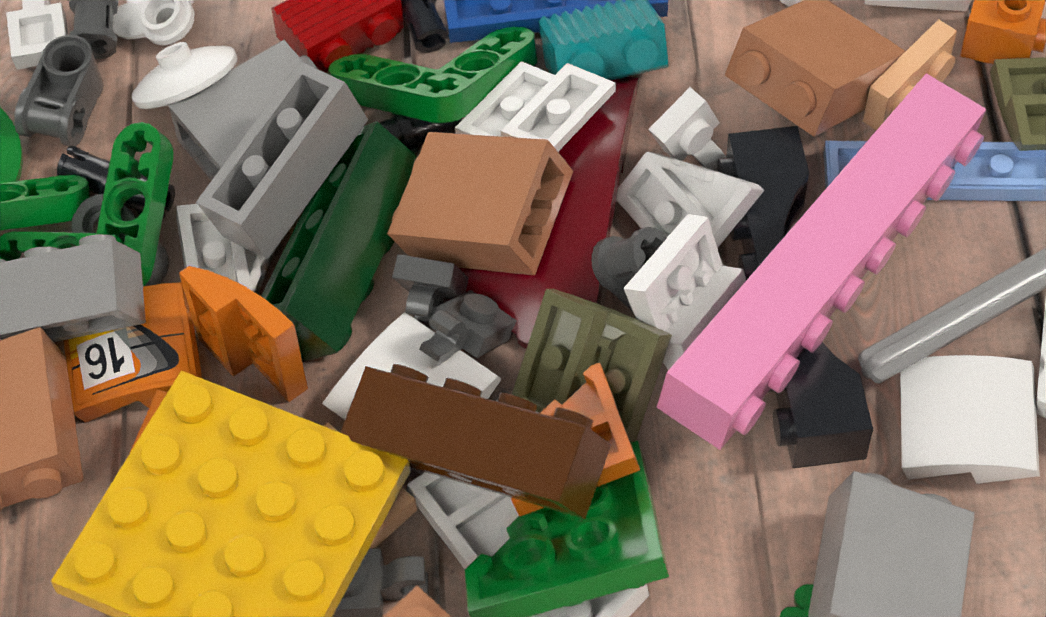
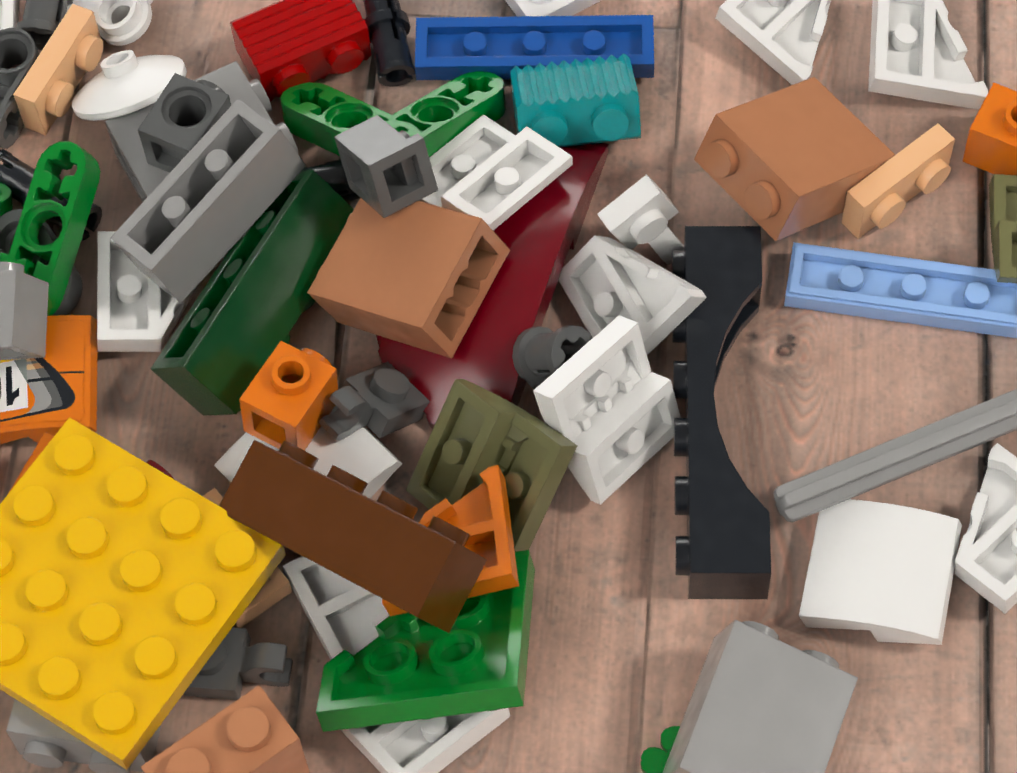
camera: 10 degrees right, 5 degrees up
(114, 70) = (58, 70): none -> light nougat plate
(244, 92) = (180, 104): none -> dark grey brick
(244, 330) = (142, 379): orange slope -> none
(388, 325) = (289, 397): none -> orange brick
(428, 284) = (345, 348): dark grey tile -> none
(446, 106) = (385, 165): none -> dark grey brick
(821, 264) = (753, 383): bright pink brick -> none

